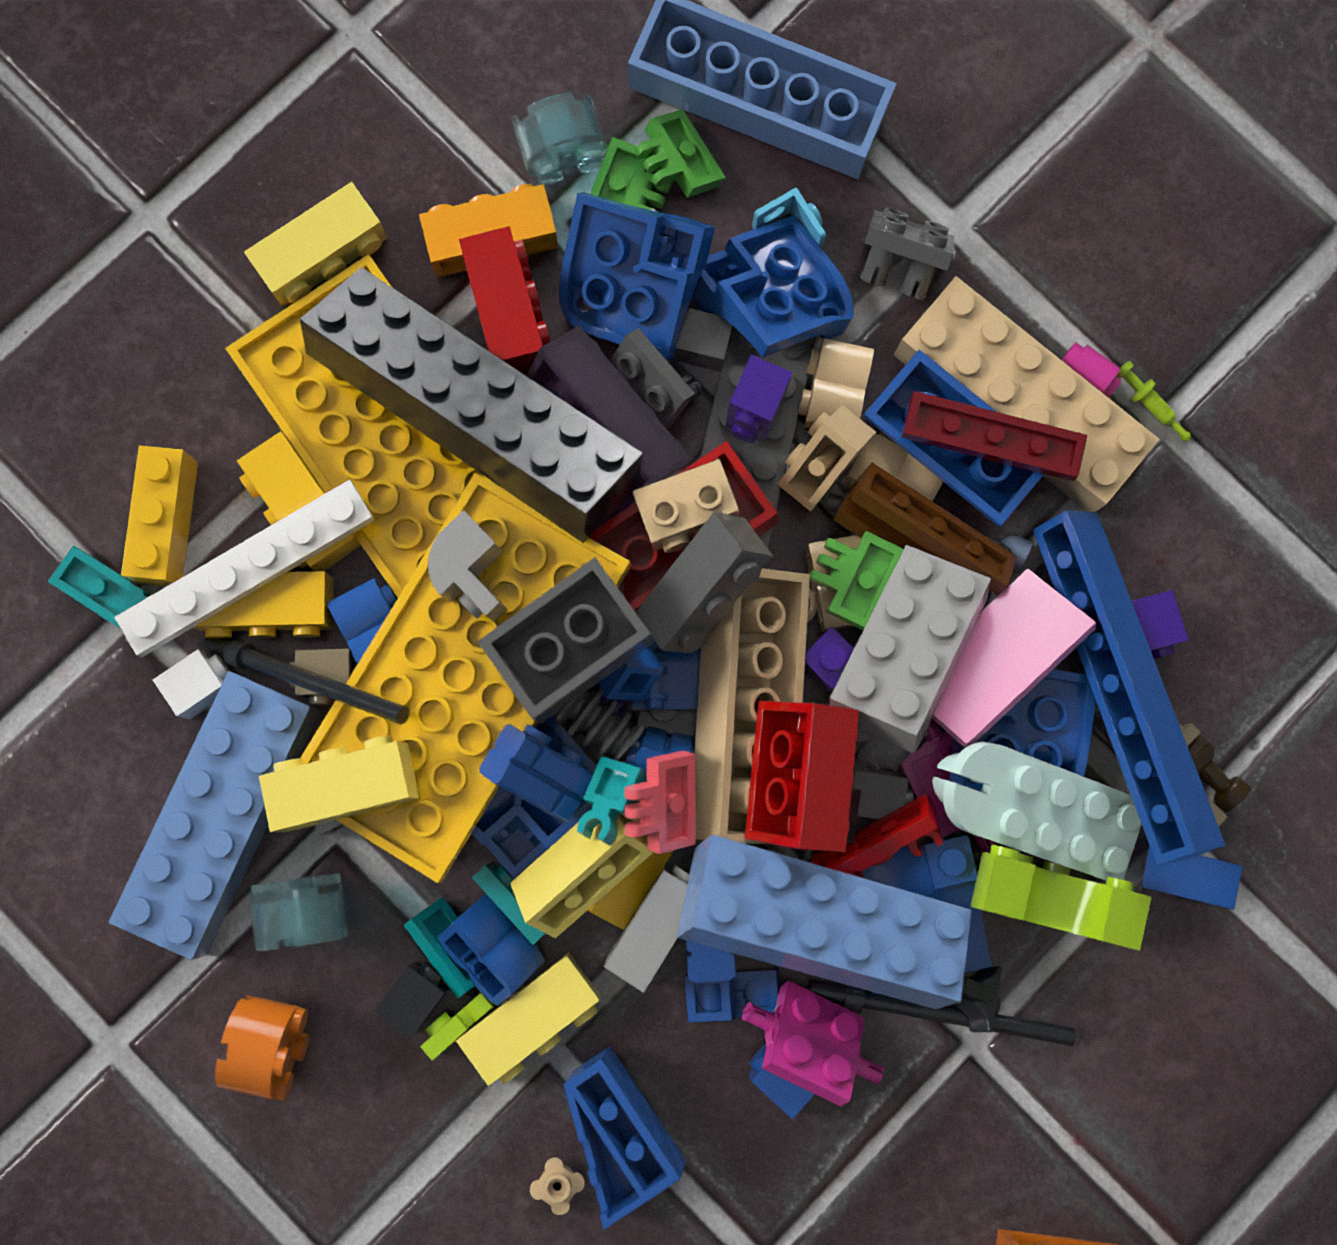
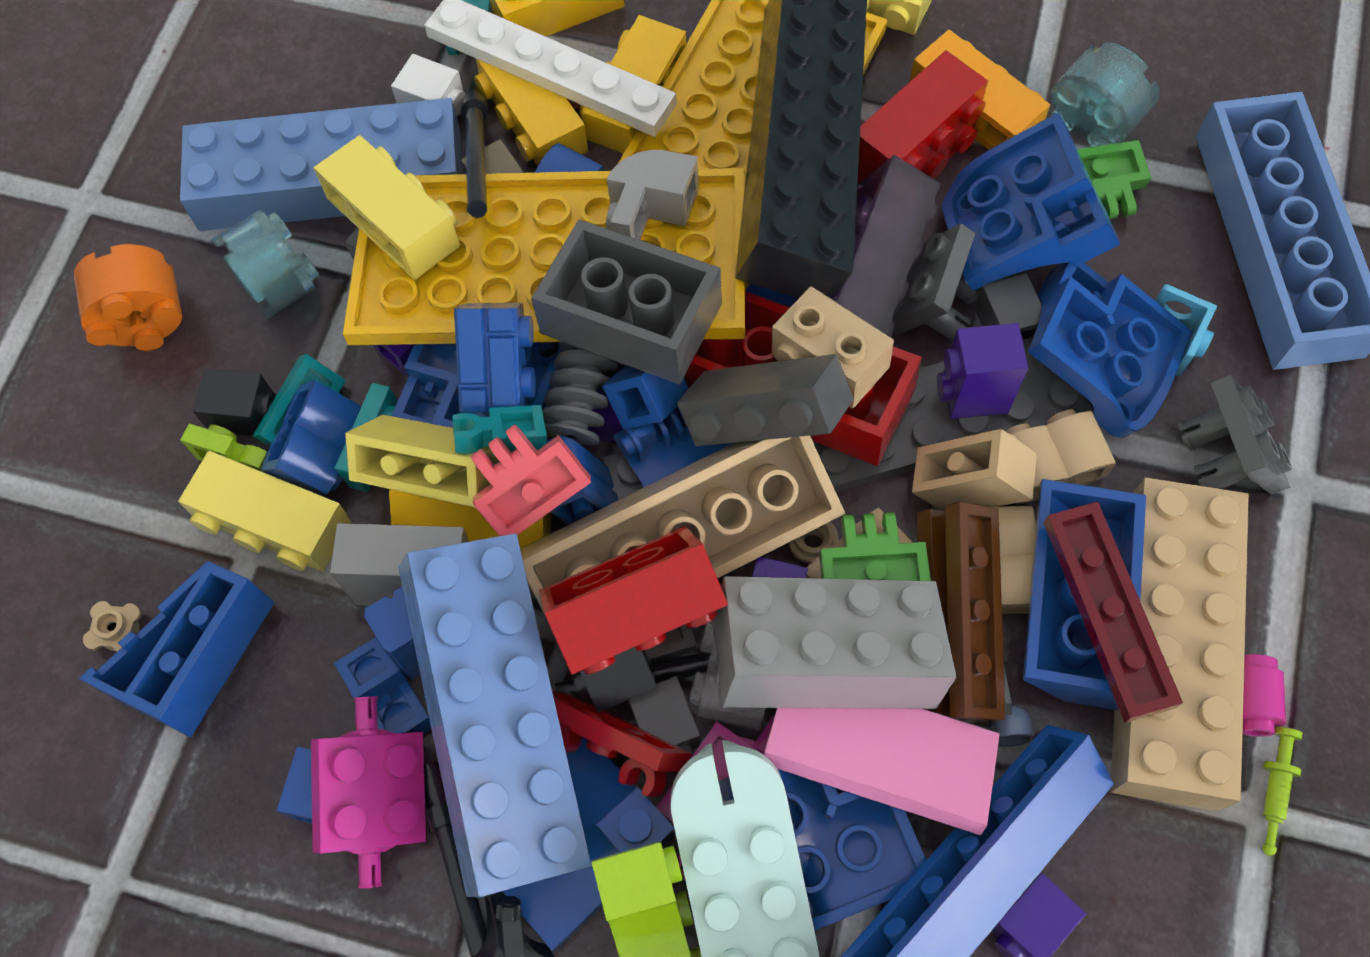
camera: 70 degrees right, 15 degrees down
(679, 155) = (1167, 201): bright green hinge -> none

